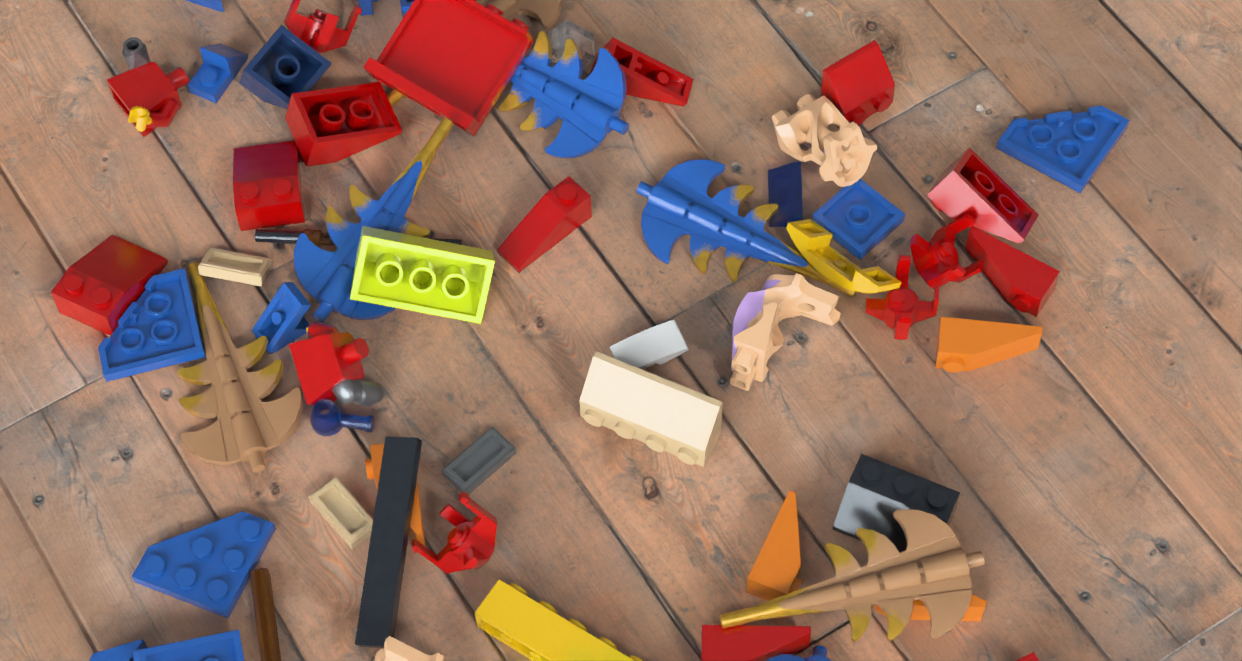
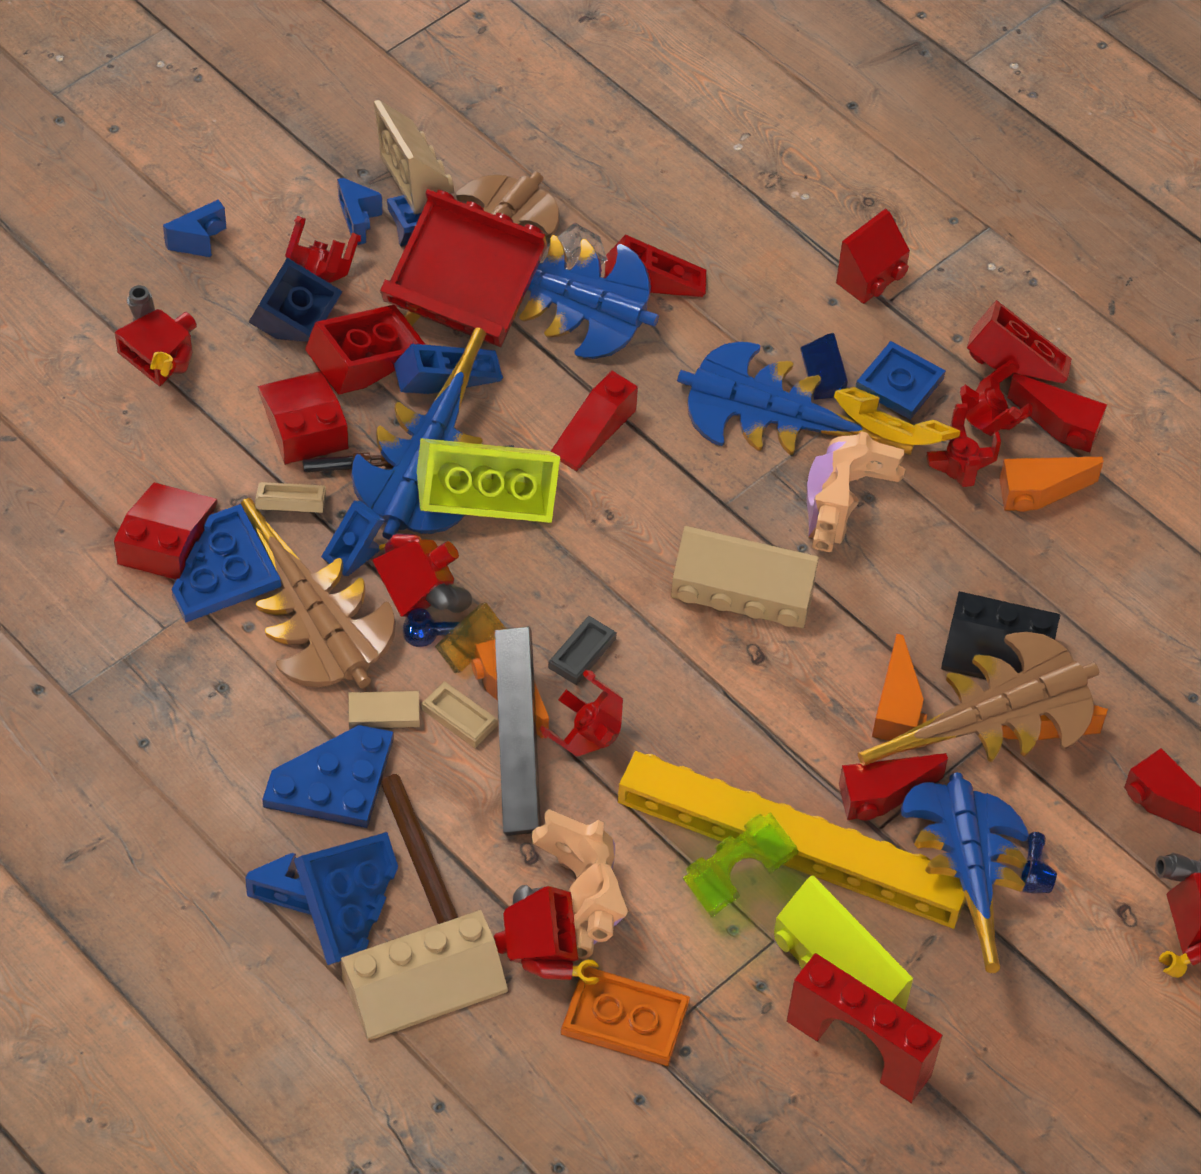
camera: 15 degrees left, 5 degrees down
(217, 71) = (220, 315): blue slope -> none
(272, 497) = (384, 709): none -> tan tile
(371, 430) = (460, 644): none -> clear yellow tile
(392, 150) = (427, 368): none -> blue slope
(651, 346) = (732, 518): white slope -> none
(841, 154) = (864, 318): light nougat hips -> none
(1065, 143) = (1082, 290): blue plate -> none

